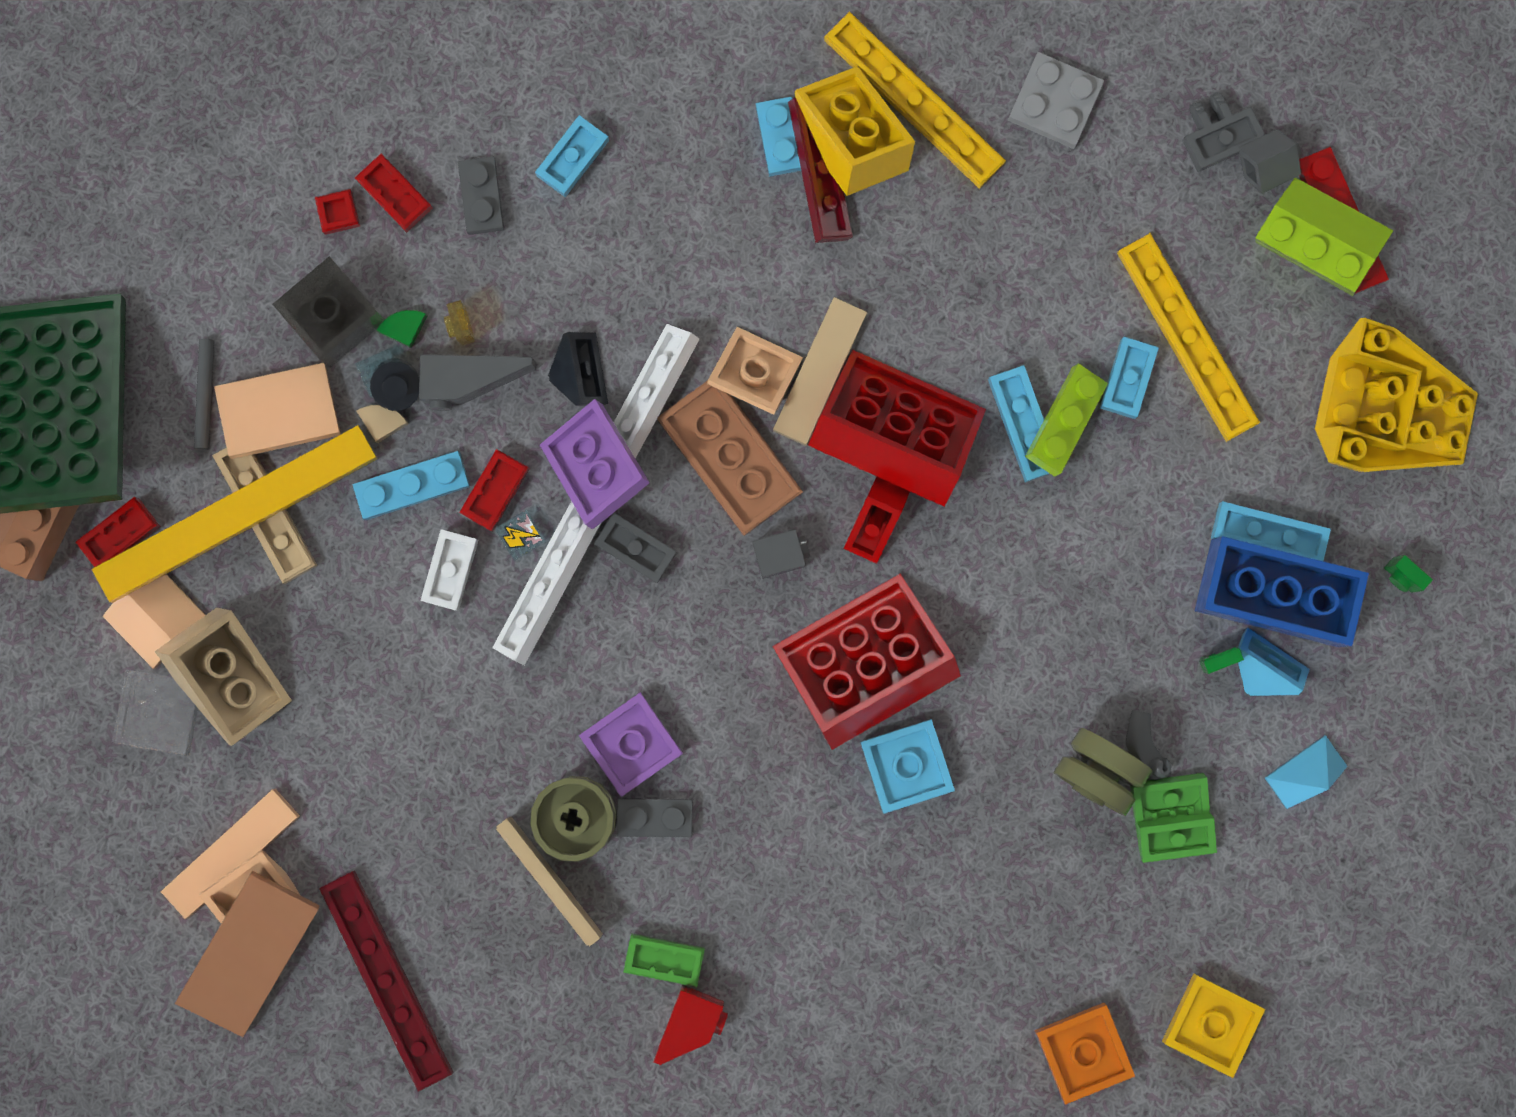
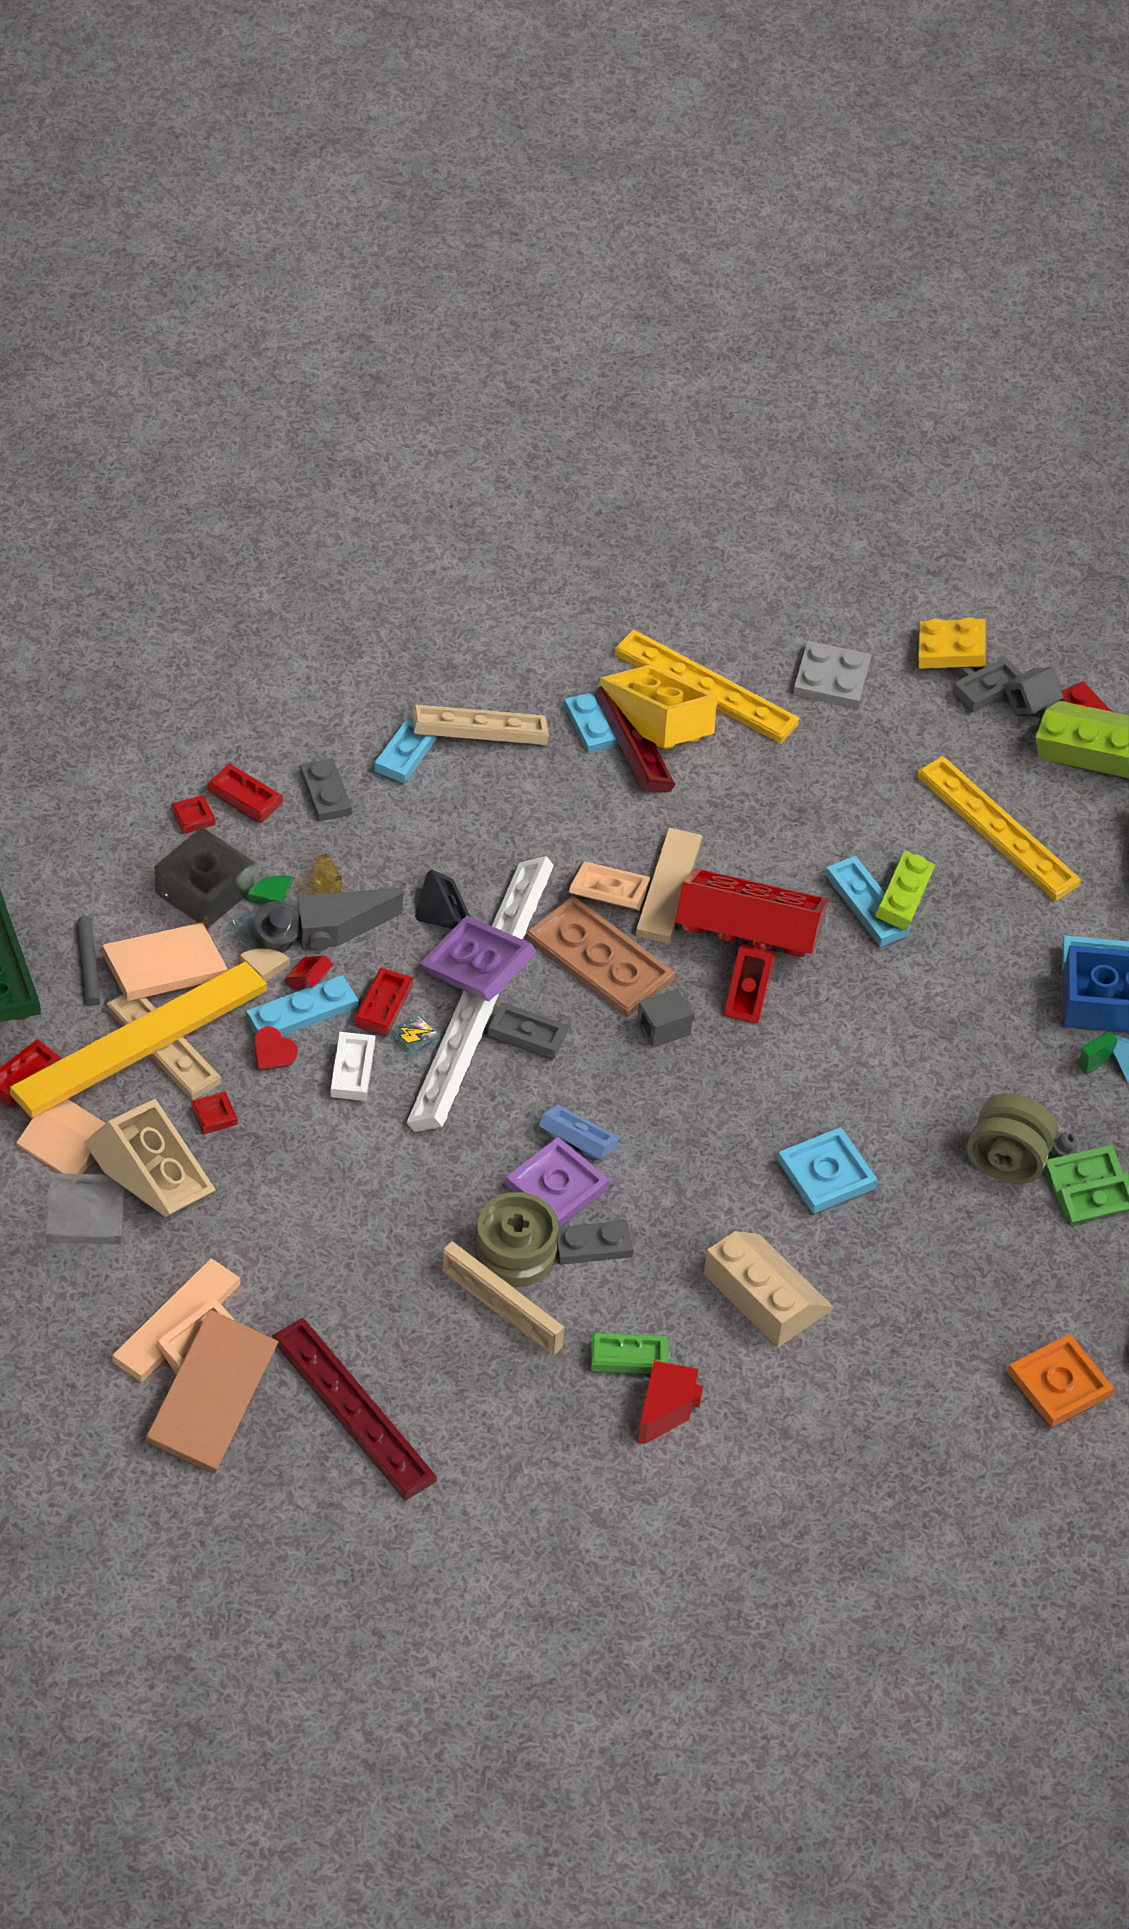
camera: 15 degrees left, 35 degrees down
(303, 605) = (214, 1113): none -> red tile
(372, 539) = (273, 1050): none -> red tile
(422, 444) = (308, 972): none -> red tile
(656, 132) = (480, 724): none -> tan tile
(663, 686) = (578, 1131): none -> medium blue plate
(818, 899) = (764, 1286): none -> tan slope
(867, 661) = (770, 1093): red slope -> none
(1129, 377) = (953, 858): medium azure plate -> none
(1196, 79) = (952, 643): none -> yellow plate

